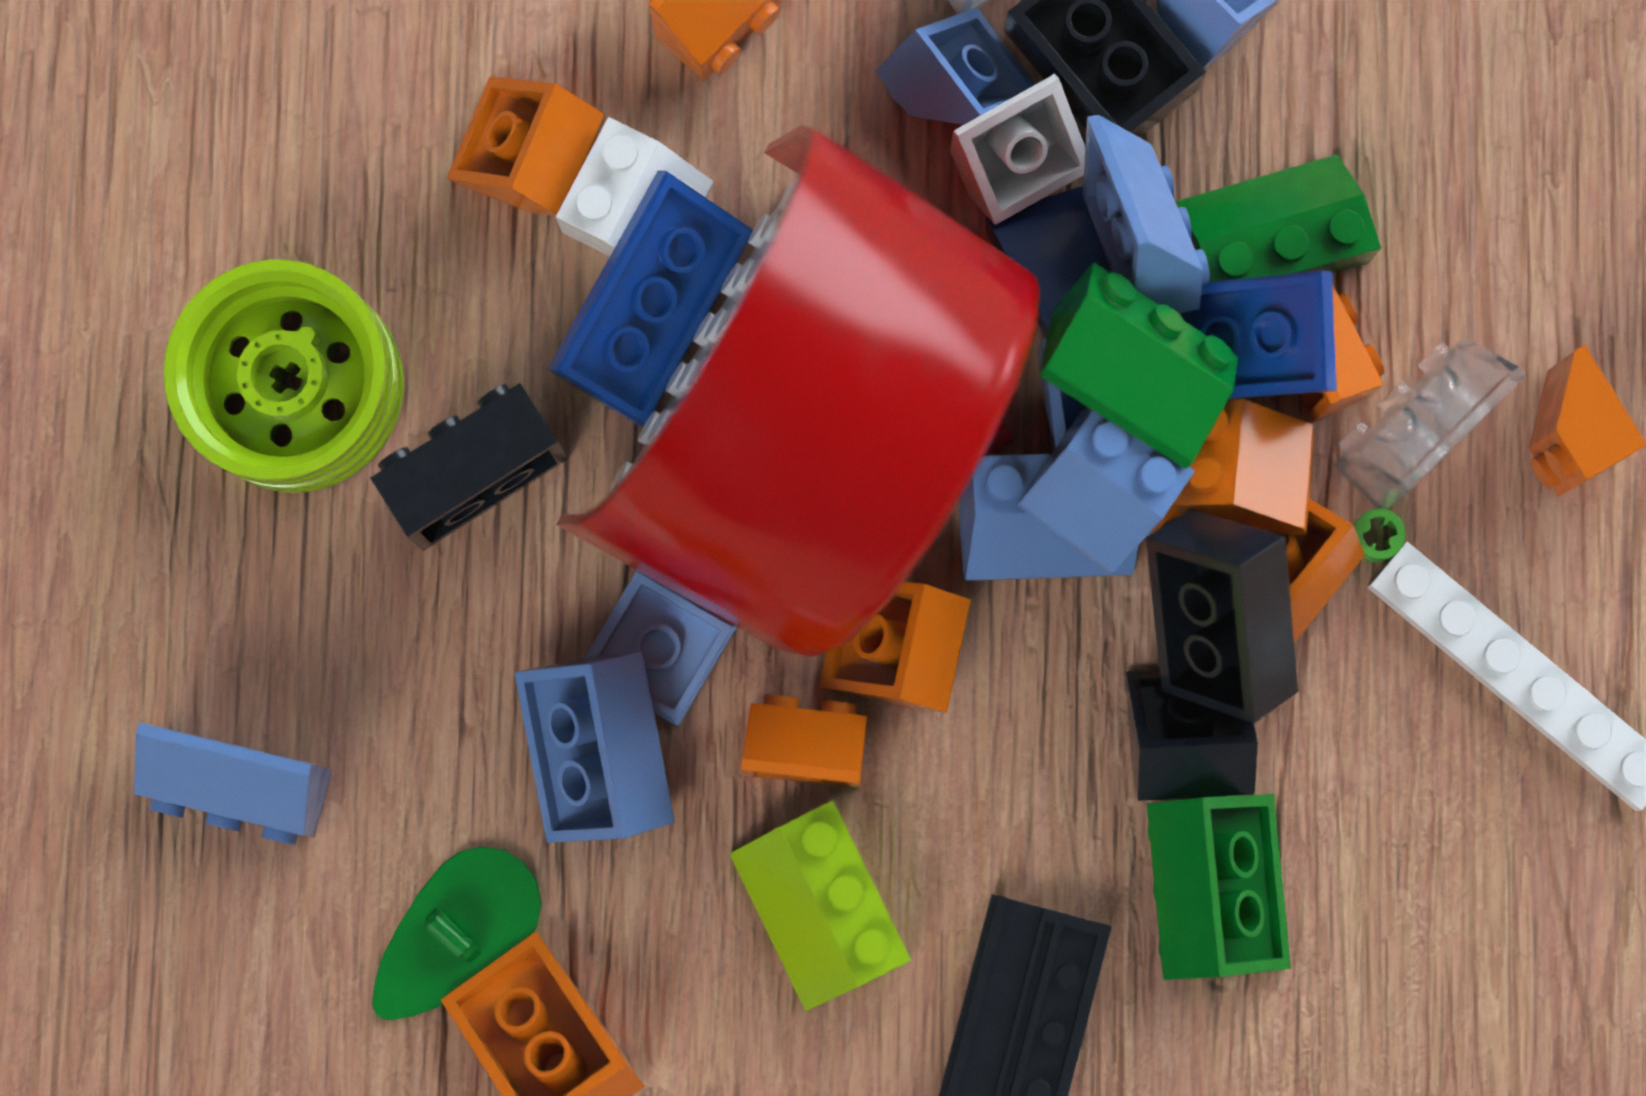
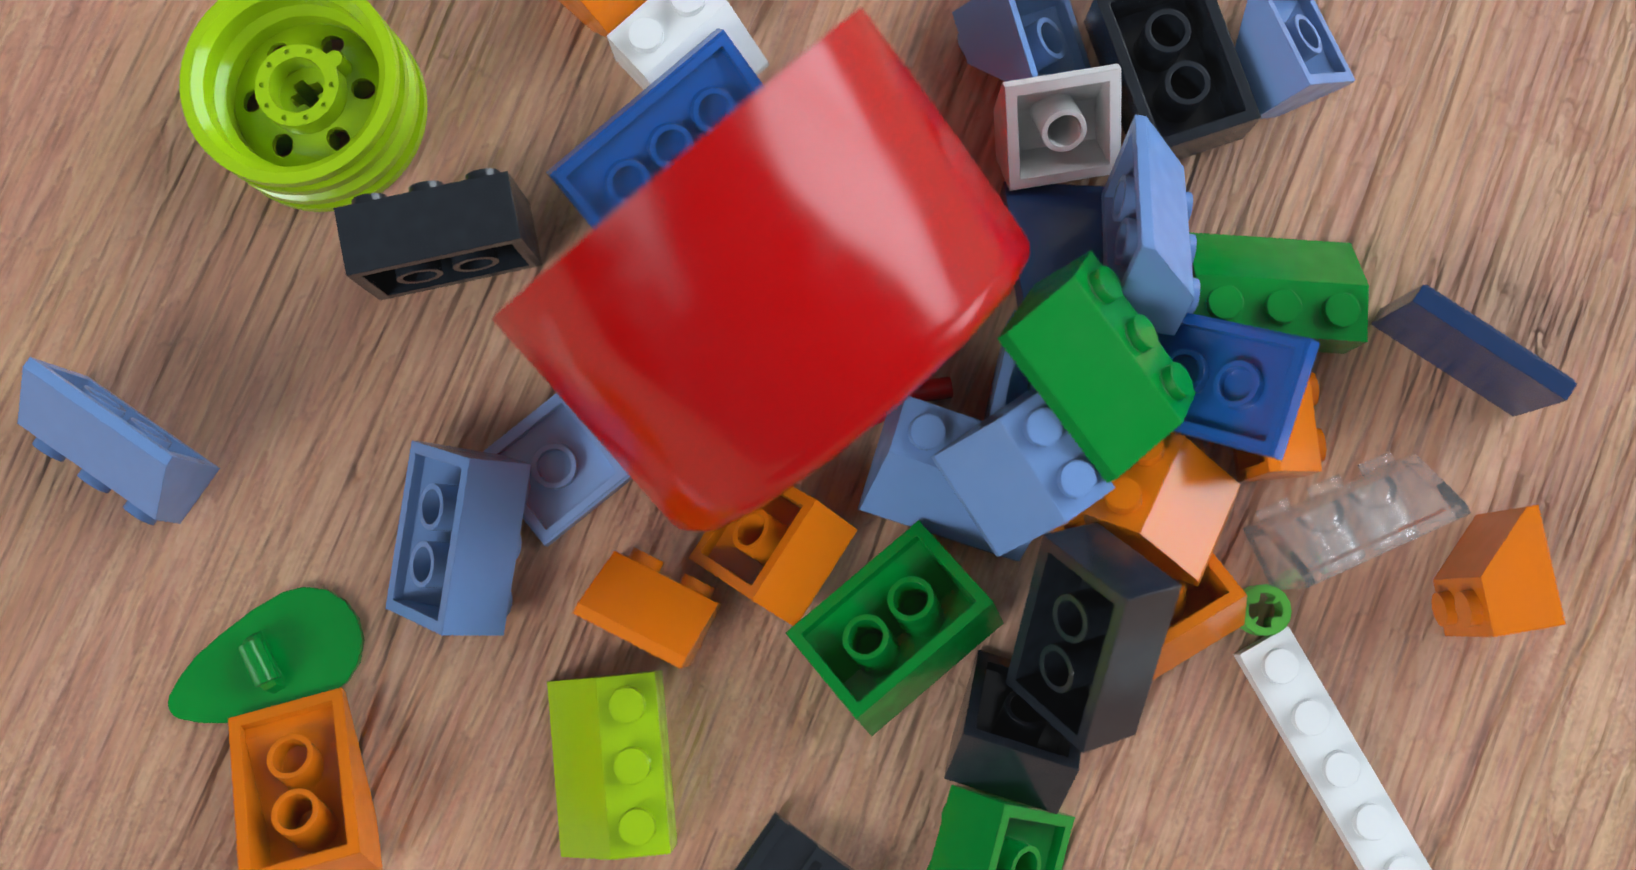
camera: 20 degrees right, 0 degrees up
(1041, 677) = (895, 627): none -> green slope
(1482, 221) = (1473, 352): none -> dark blue tile

